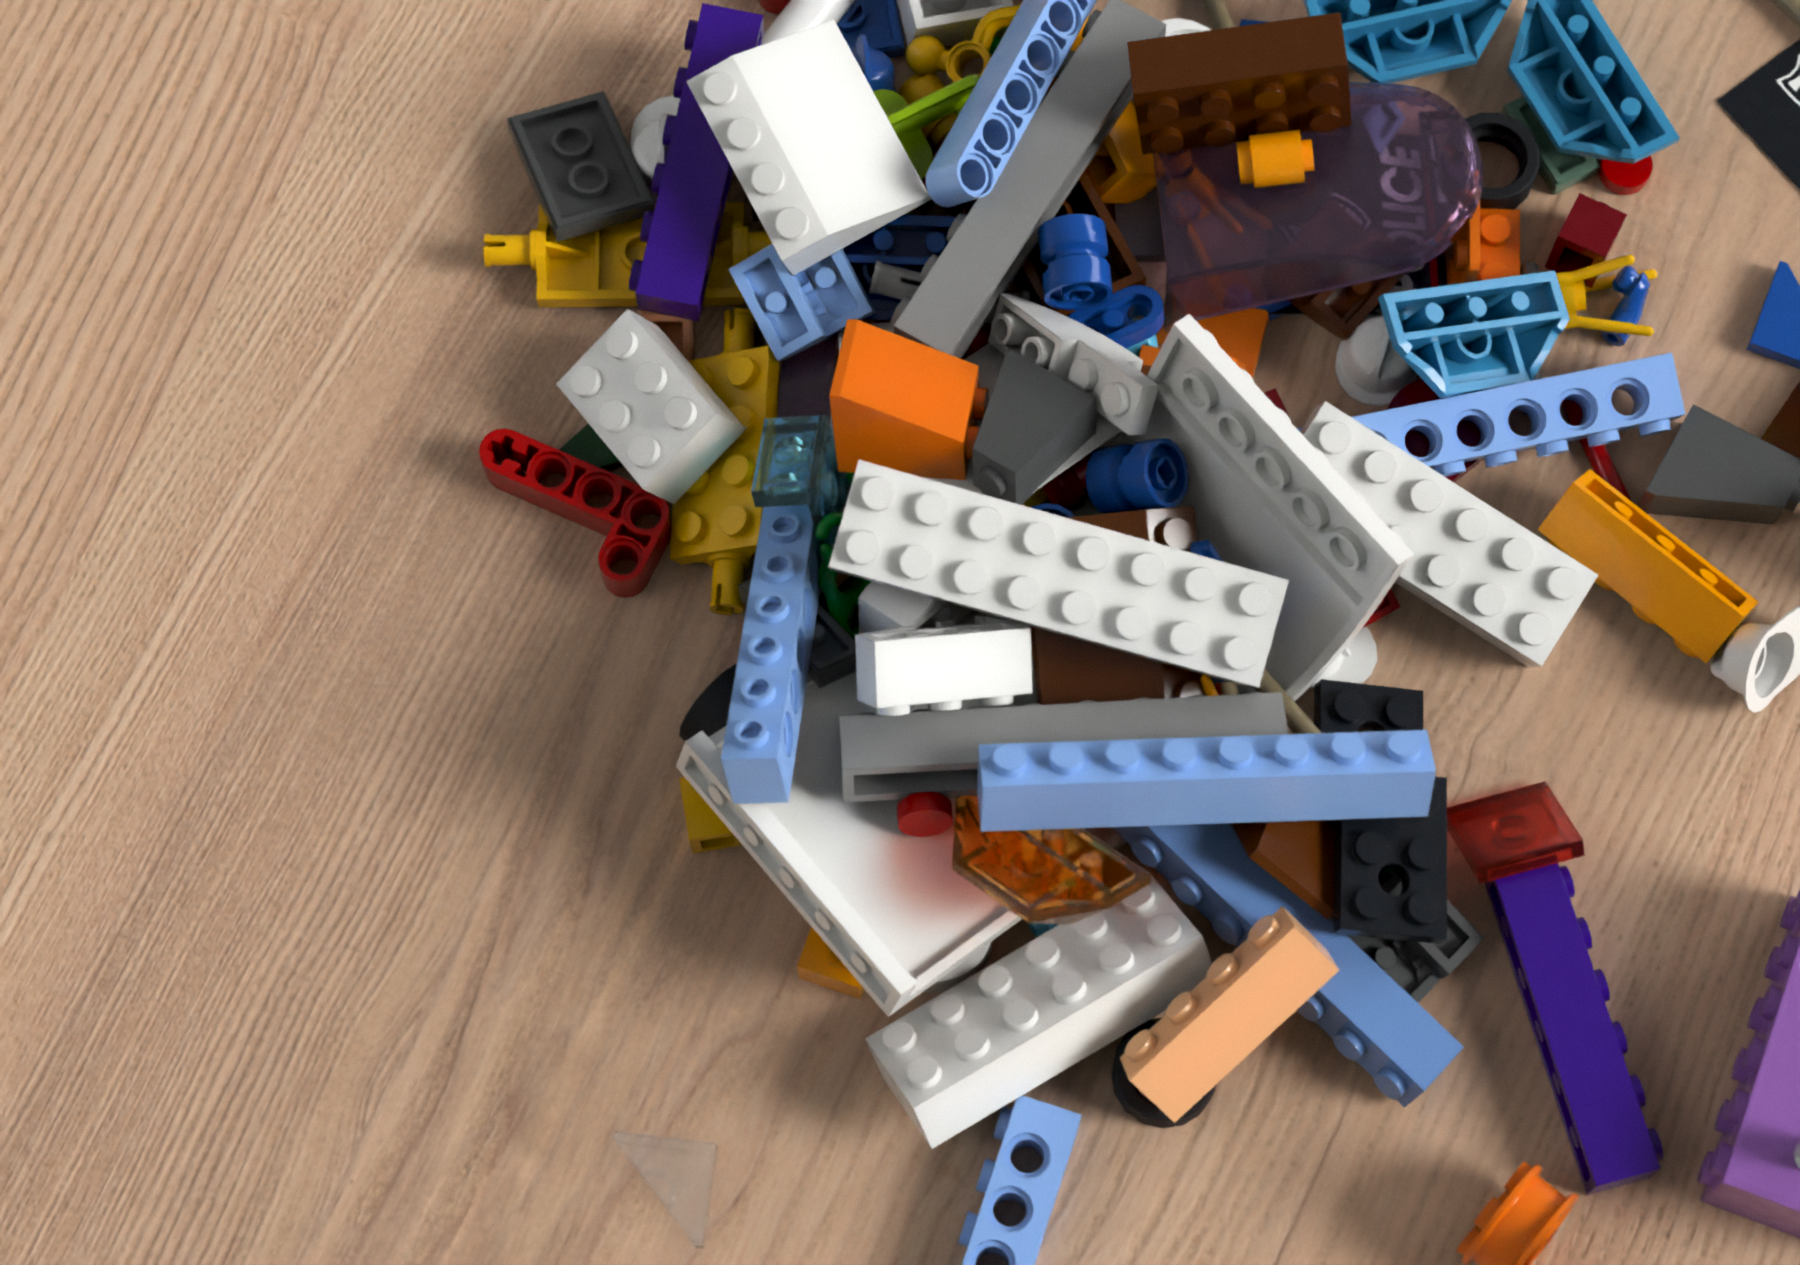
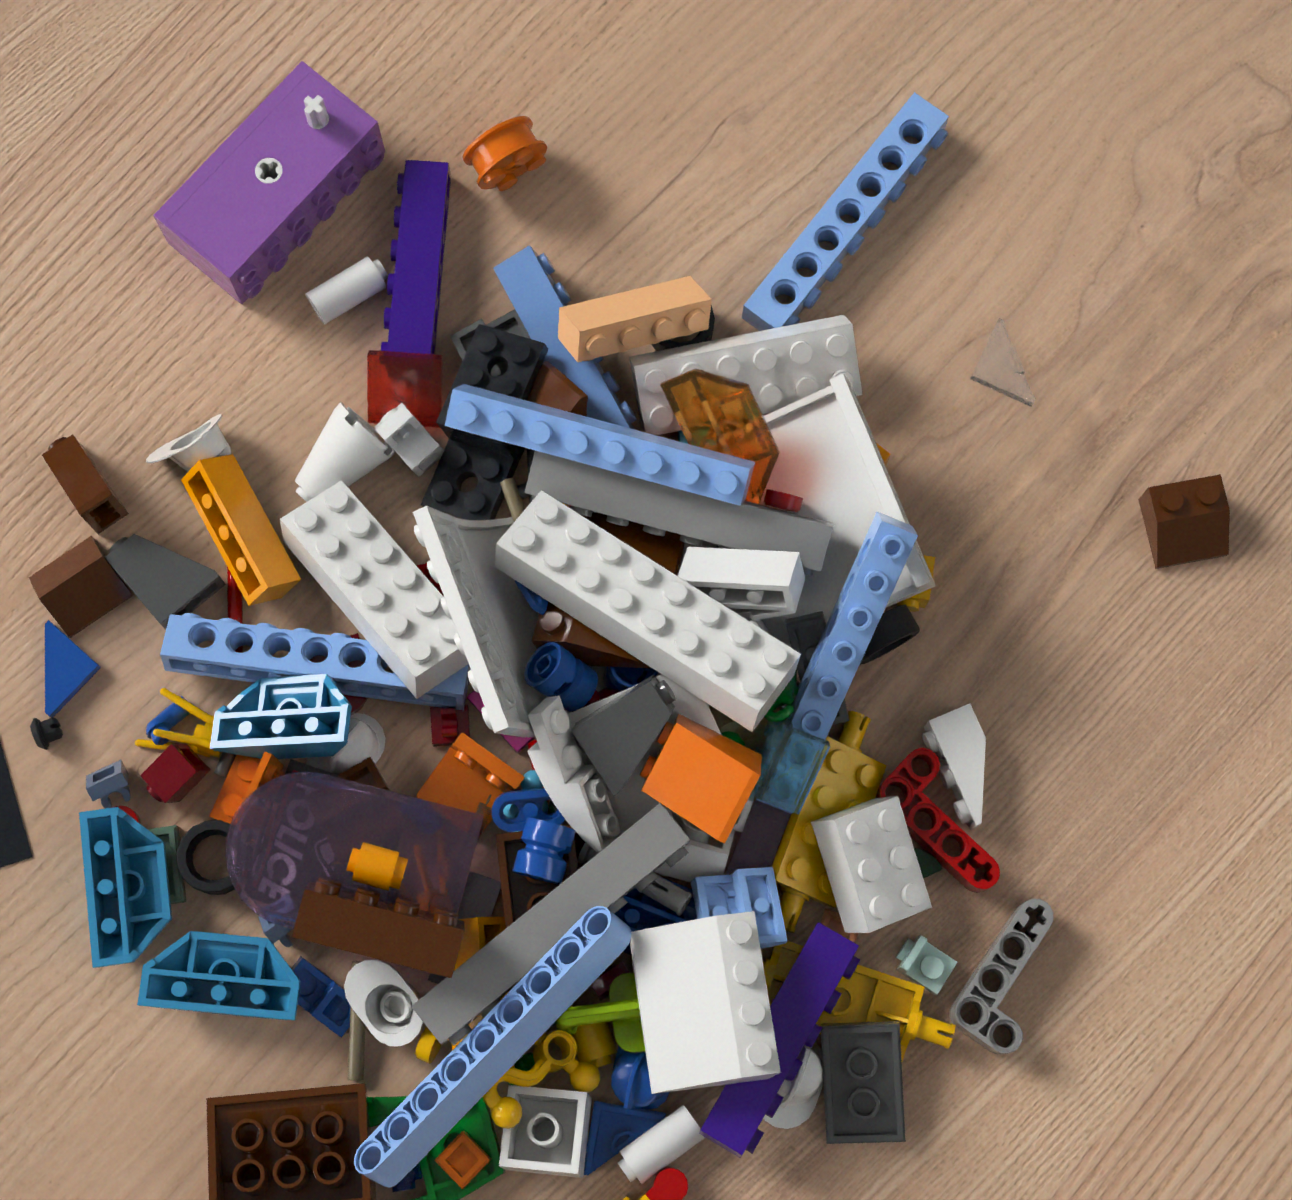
camera: 165 degrees left, 5 degrees up
(348, 1029) = (1186, 521): none -> reddish brown slope
(435, 356) = (1007, 971): none -> light grey beam
(544, 334) = (925, 964): none -> light aqua bracket
(578, 608) = (961, 752): none -> white slope
(1478, 766) = (409, 439): none -> white brick
(1555, 716) = (343, 452): none -> white cone
(1658, 956) = (347, 289): none -> white brick
(1665, 206) = (108, 780): none -> sand blue tile
(1775, 242) = (45, 731): none -> black piece

